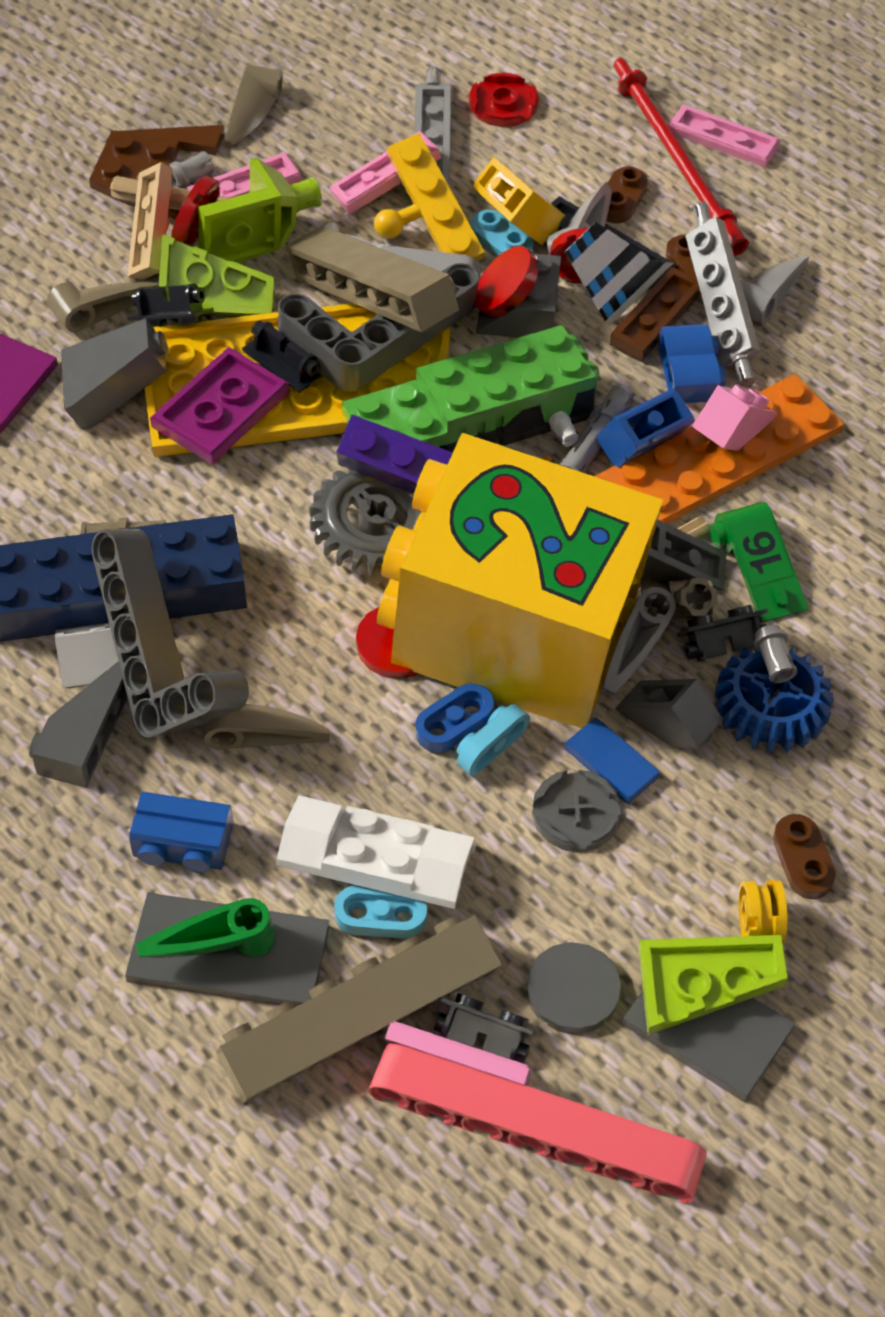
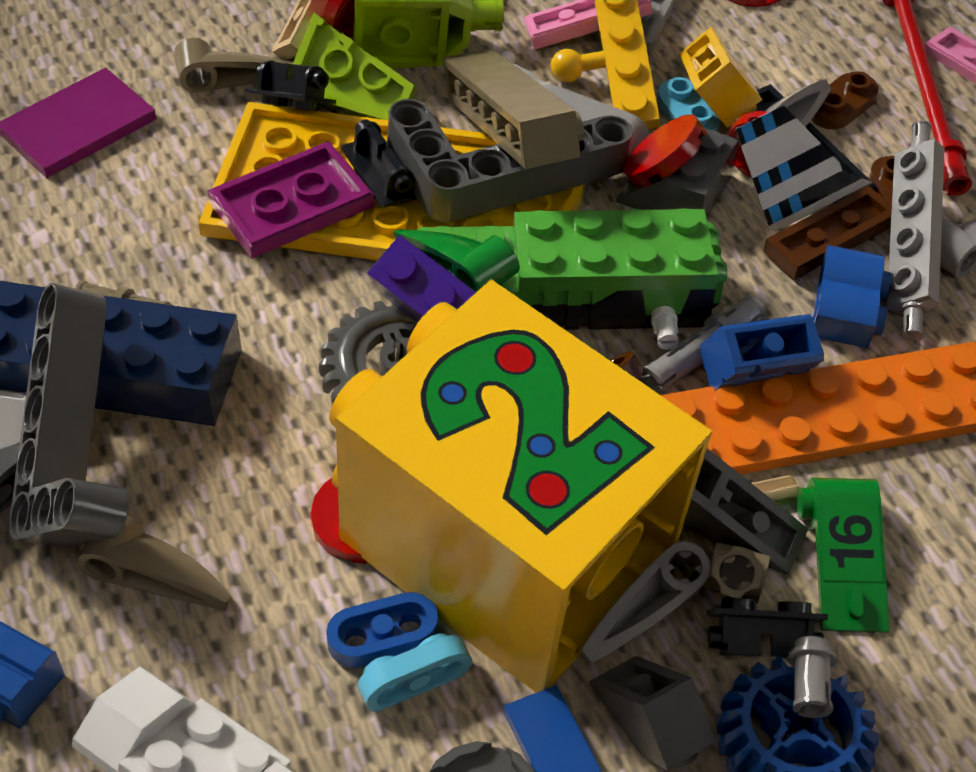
camera: 20 degrees right, 5 degrees down
(110, 370) = (193, 134): dark grey slope -> none
(416, 419) = (466, 258): none -> green piece
(734, 416) = (874, 367): bright pink slope -> none

